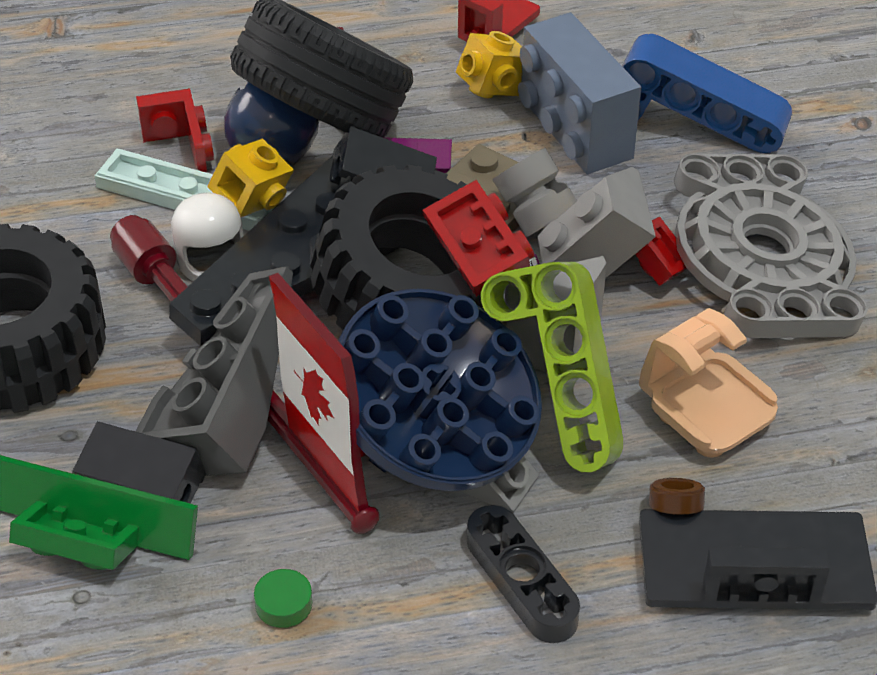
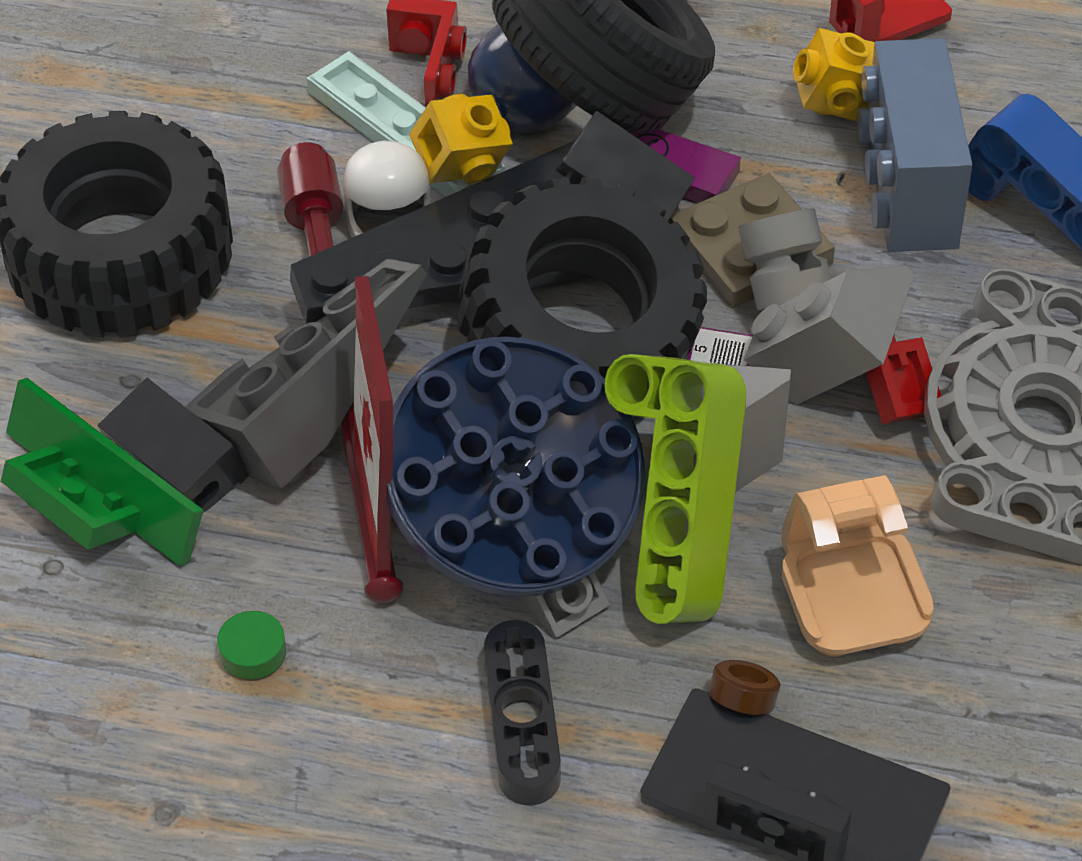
camera: 25 degrees right, 5 degrees up
(477, 236) = (650, 298): red bracket -> none

